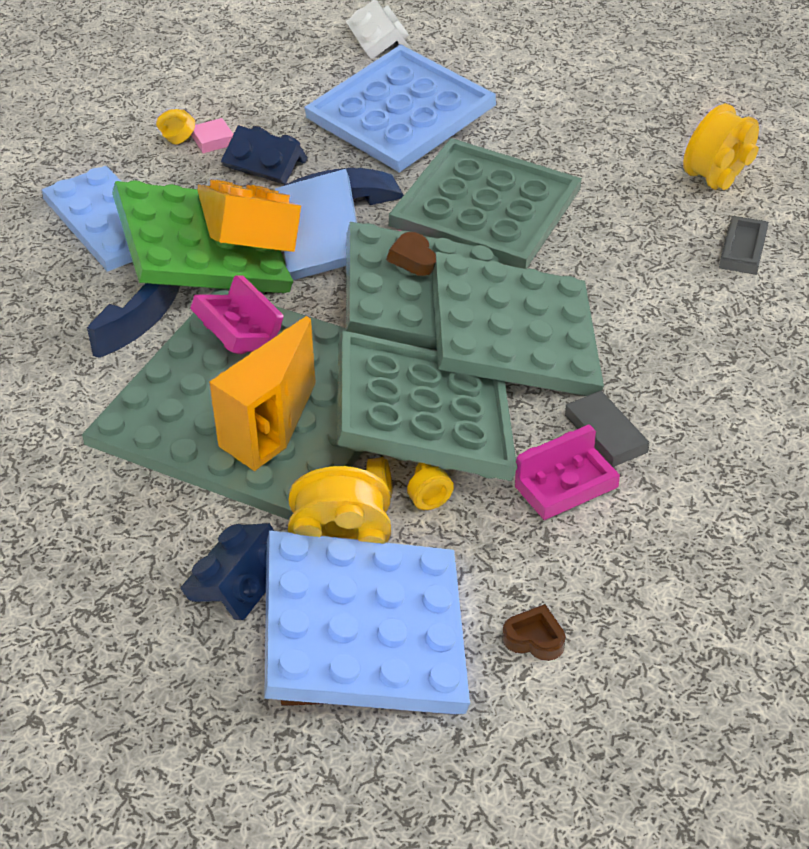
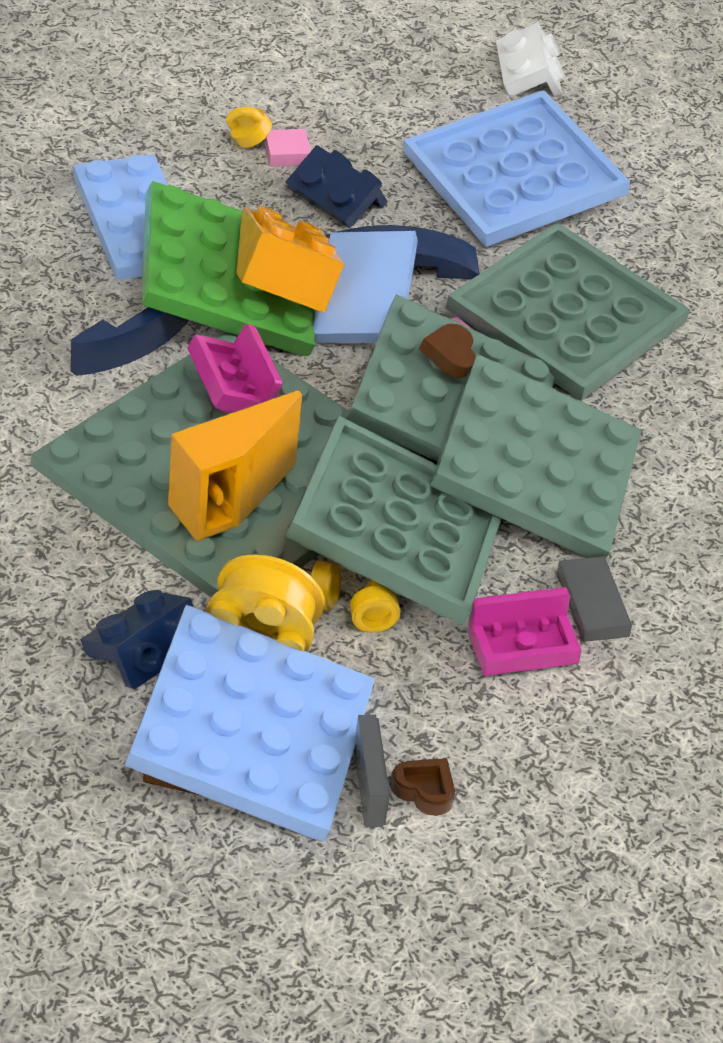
camera: 10 degrees right, 0 degrees up
(486, 636) = (371, 771): none -> dark grey tile

